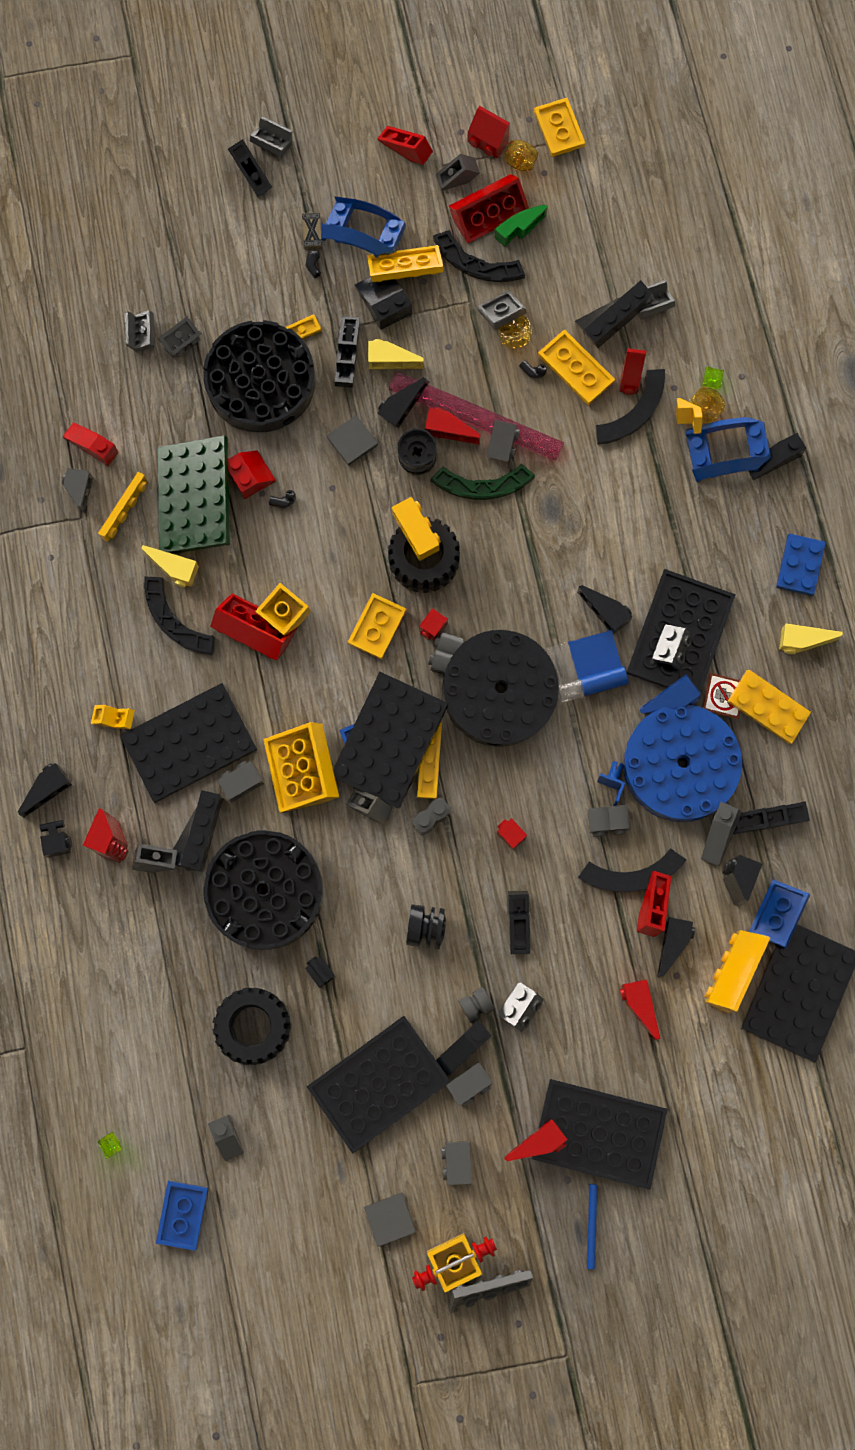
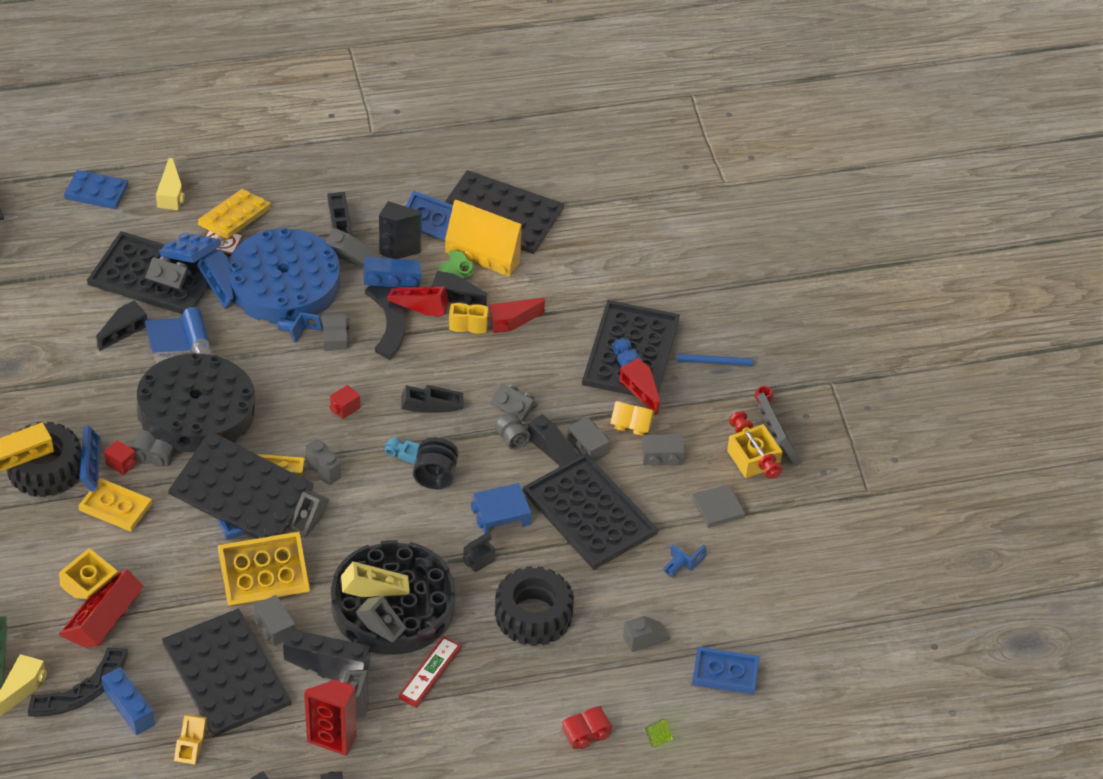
camera: 95 degrees left, 30 degrees down
(116, 1076) = (587, 727): none -> red brick
(150, 659) = (128, 701): none -> blue brick
(186, 928) = (429, 672): none -> tile
(218, 877) = (381, 618): none -> dark grey slope
(261, 871) = (372, 581): none -> light yellow slope
(315, 1176) = (681, 559): none -> blue bracket
(376, 993) = (500, 507): none -> blue panel
(426, 596) = (90, 458): none -> blue tile
(449, 900) = (405, 452): none -> dark azure plate
(497, 1131) = (632, 417): none -> yellow brick
(548, 1278) = (766, 390): none -> red plate
(577, 1131) = (622, 348): none -> blue plate
(628, 963) = (468, 318): none -> yellow brick
(689, 875) = (391, 272): none -> blue brick
(702, 664) = (189, 247): none -> blue plate
(709, 942) = (457, 264): none -> bright green plate

